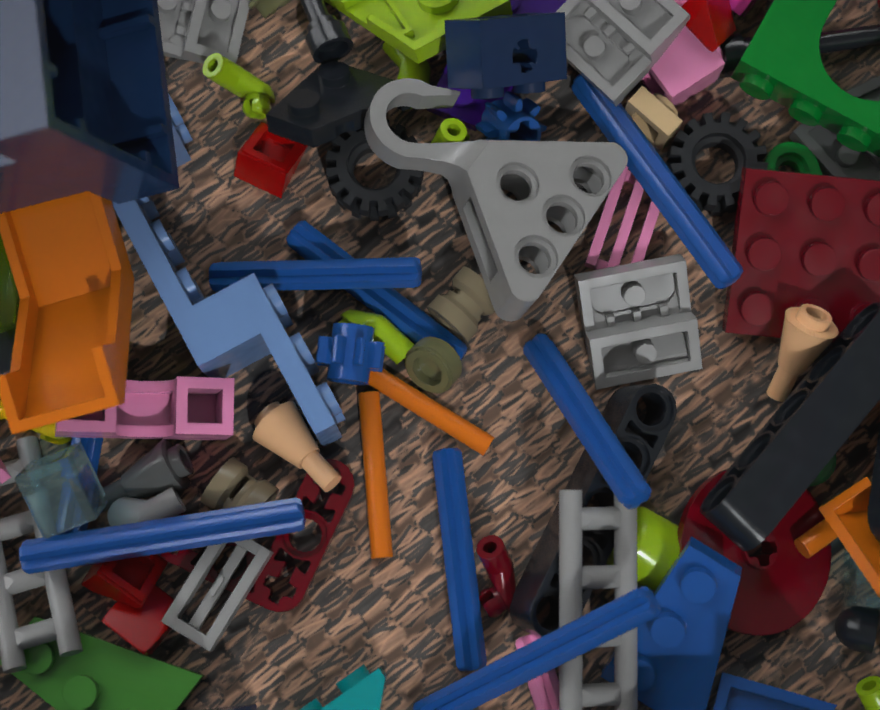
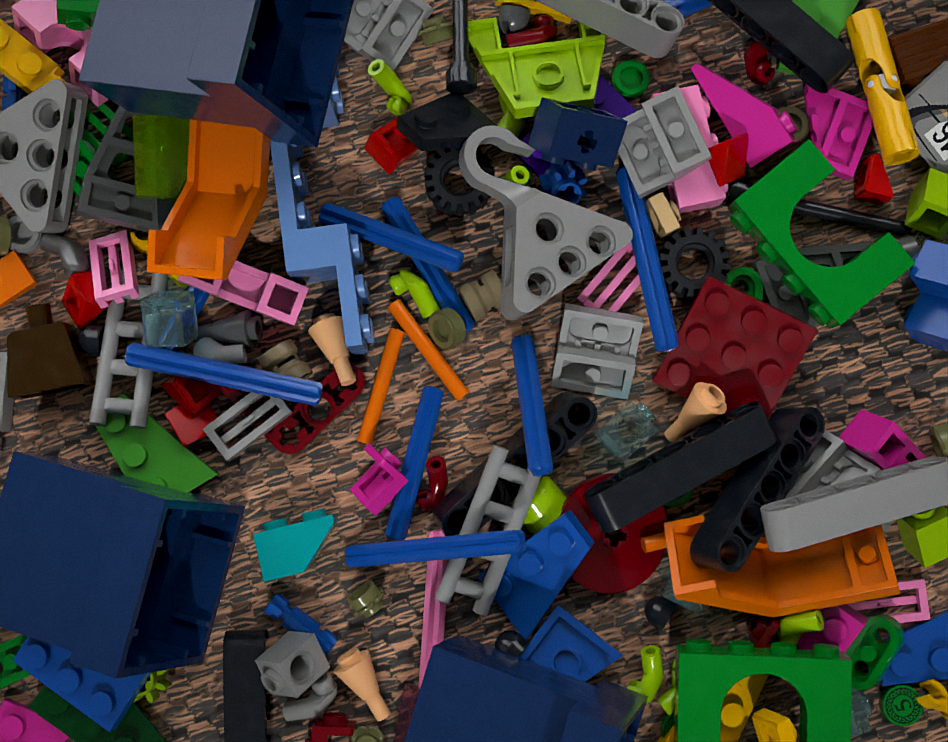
camera: 20 degrees right, 5 degrees up
(350, 353) = (393, 300): blue gear -> none
(424, 598) = (380, 481): none -> dark pink bracket
(707, 430) = (613, 443): none -> clear light blue brick

